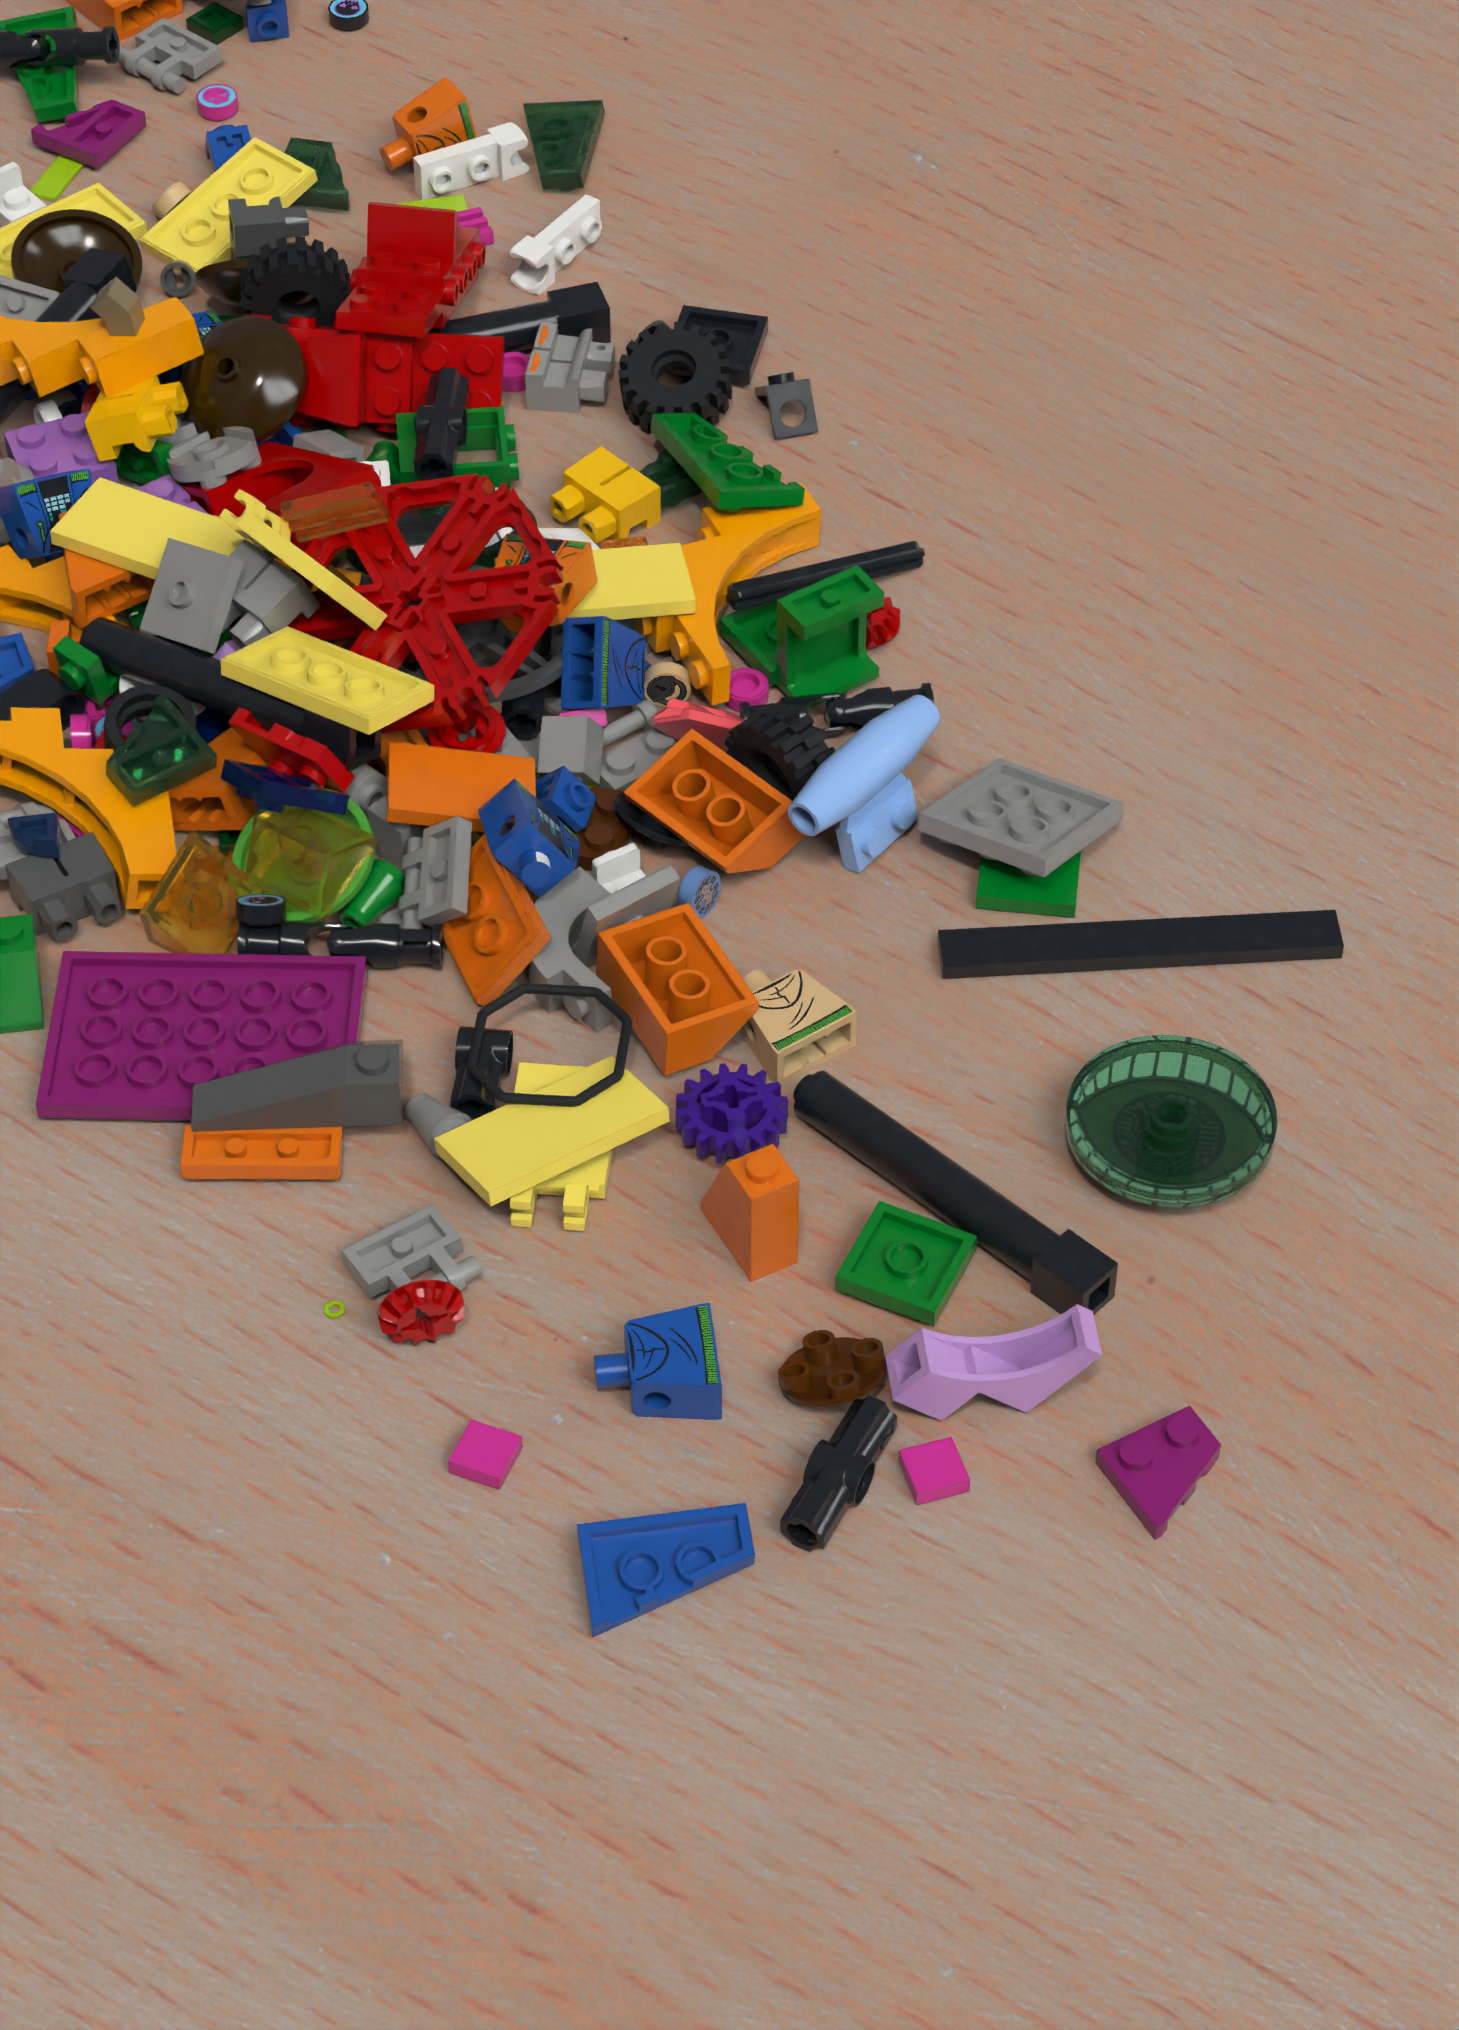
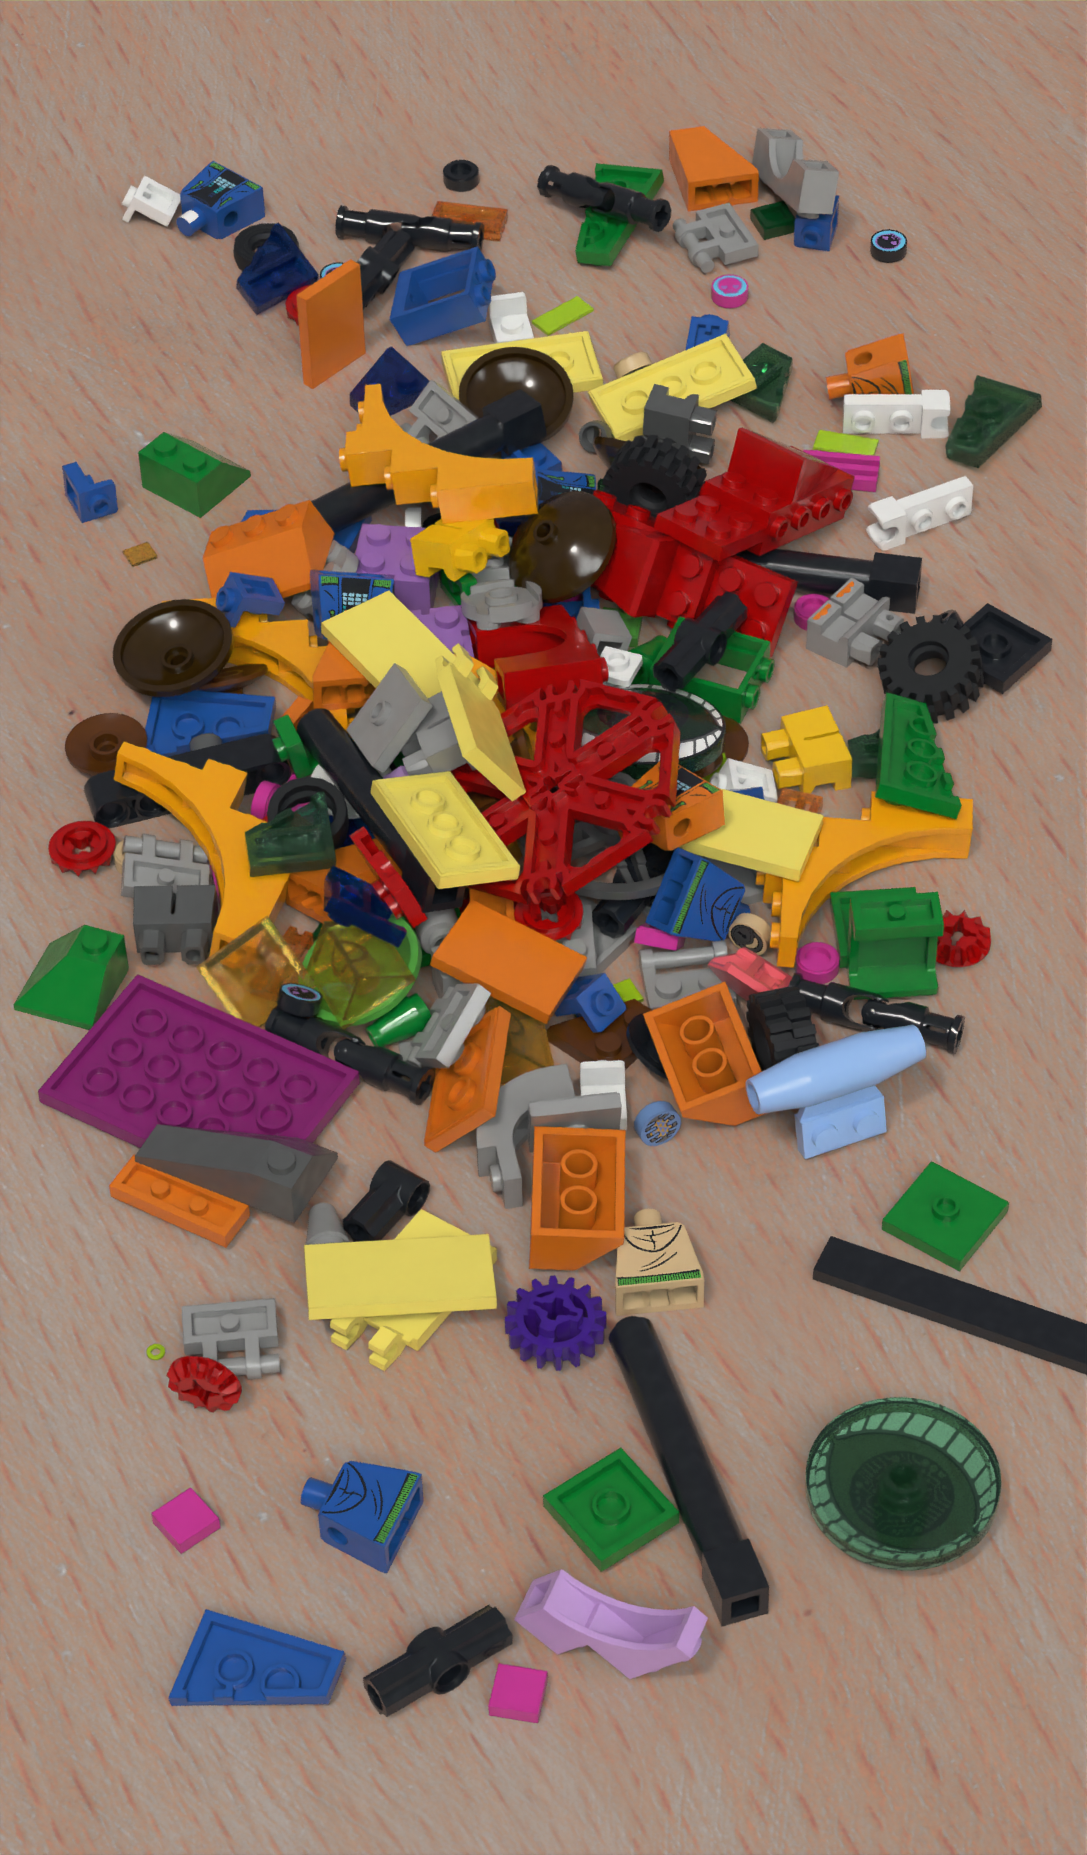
camera: 30 degrees right, 0 degrees up
(37, 834) = (171, 871): dark blue tile -> none
(93, 133) = (611, 286): magenta wing -> none
(119, 309) = (475, 454): dark tan piece -> none
(334, 511) = (533, 688): clear orange tile -> none
(535, 846) = (529, 1026): blue torso -> none
(551, 1100) = (449, 1257): black piece -> none
(573, 744) = (627, 961): light grey brick -> none
(756, 1211) = (508, 1417): orange slope -> none
(774, 586) = (948, 887): black axle -> none
(783, 389) = (1019, 708): black bracket -> none
(832, 1369) = (489, 1572): reddish brown dish -> none
(1020, 817) = (959, 1166): light grey plate -> none
(1160, 1466) = (703, 1773): magenta wing -> none

